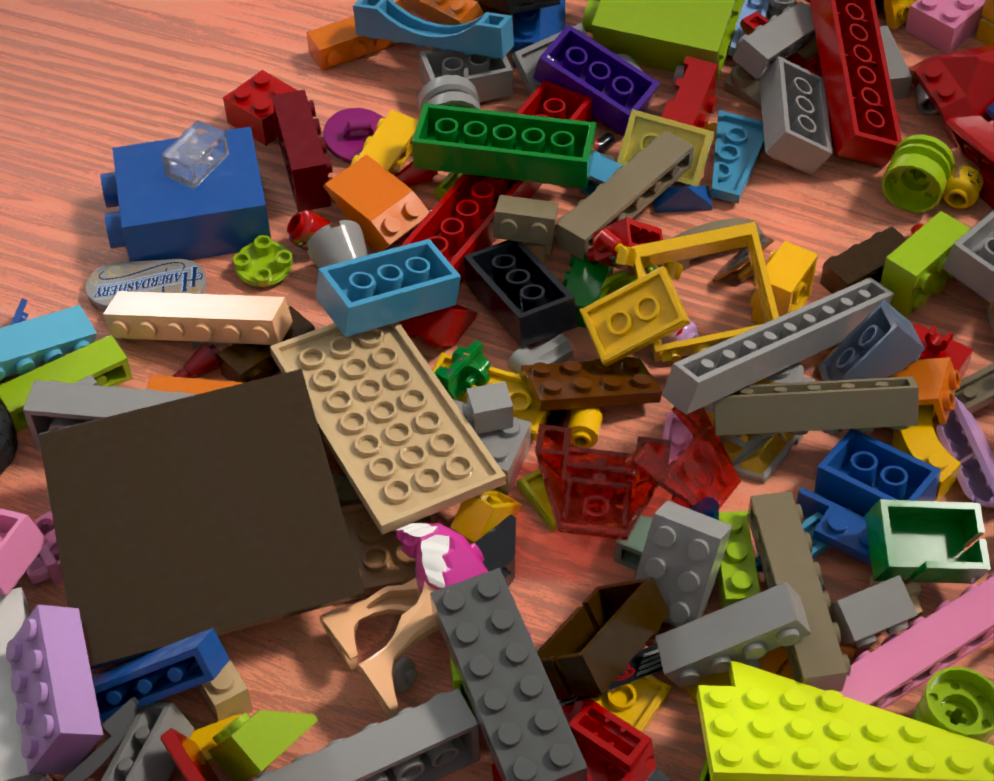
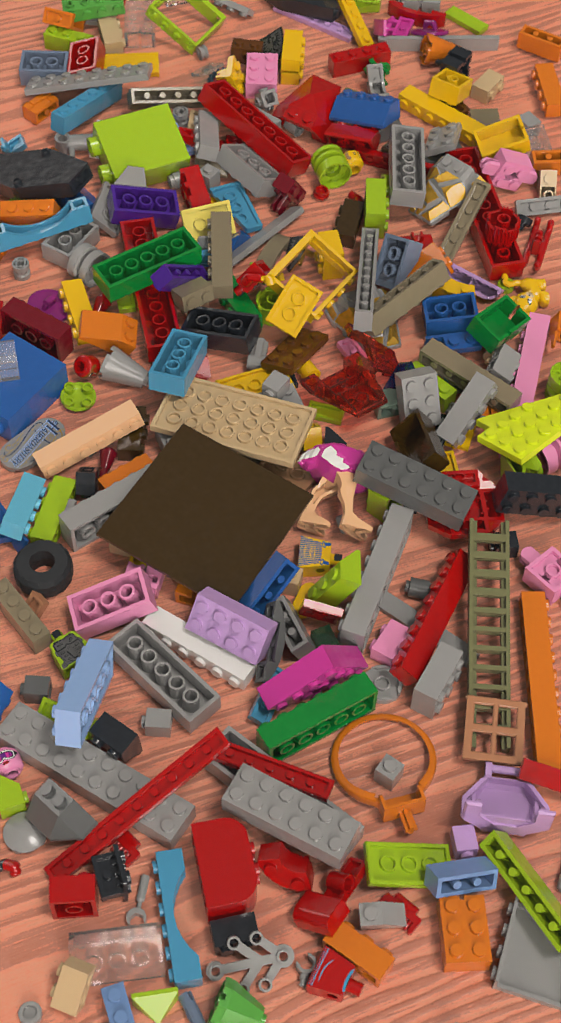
camera: 45 degrees left, 5 degrees up
(140, 362) = (87, 481): none -> black slope
(296, 685) = (316, 557): none -> yellow torso
(376, 73) = (21, 269): none -> light grey wheel
(467, 370) = (242, 377): green hips -> none
(510, 176) = (174, 275): none -> dark purple brick
(610, 32) = (132, 176): none -> light grey slope
(728, 210) = (265, 234): none -> light grey tile
(733, 94) = (211, 176): none -> light grey brick
(817, 171) = (287, 192): none -> dark red brick
(874, 203) = (321, 192): none -> red plate
(927, 32) = (266, 99): none -> light grey brick

